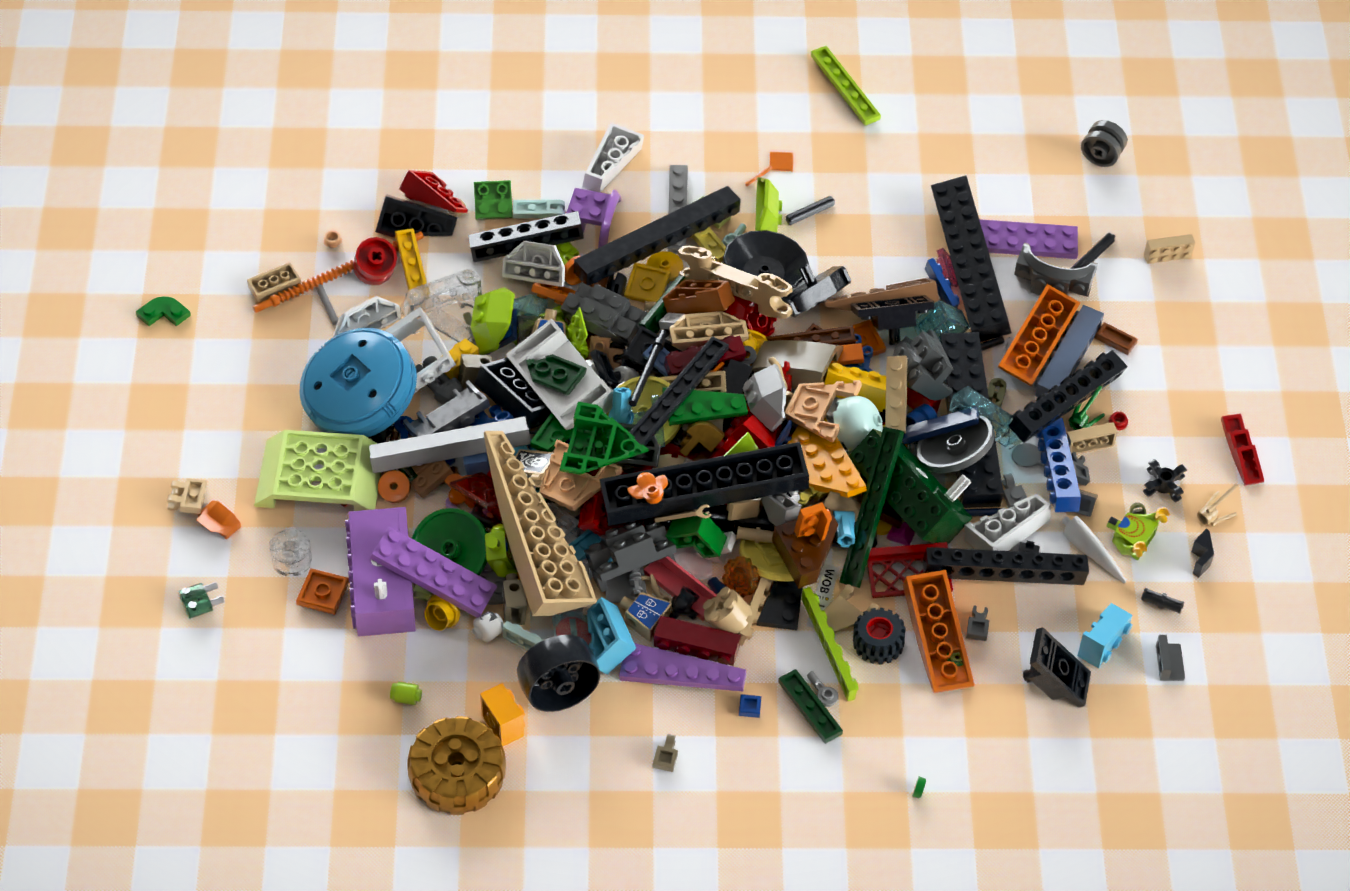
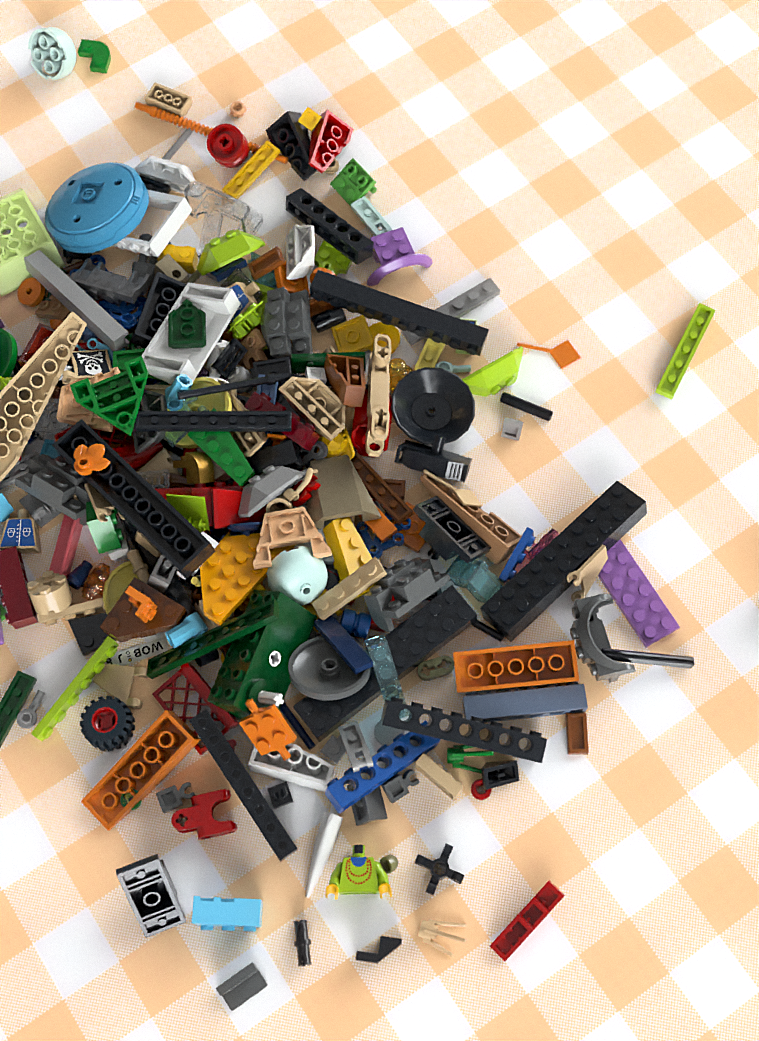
camera: 60 degrees right, 15 degrees up
(124, 333) = (54, 48): none -> light aqua cylinder
(405, 188) = (309, 119): none -> yellow tile
(531, 294) = (266, 263): none -> dark orange tile
(612, 155) = (462, 231): white wedge -> none
(655, 589) = (54, 528): tan piece -> none
(683, 602) = (47, 554): black piece -> none
(824, 228) = (512, 429): none -> light grey tile
(855, 291) = (465, 496): none -> tan piece
(980, 508) = (267, 729): none -> orange plate
(995, 252) = (588, 573): none -> tan flag
(1010, 612) = (201, 817): none -> red piece
(1032, 467) = (355, 746): none -> light grey plate
(1114, 400) = (499, 773): none -> black slope
(1169, 248) = (714, 721): tan piece -> none

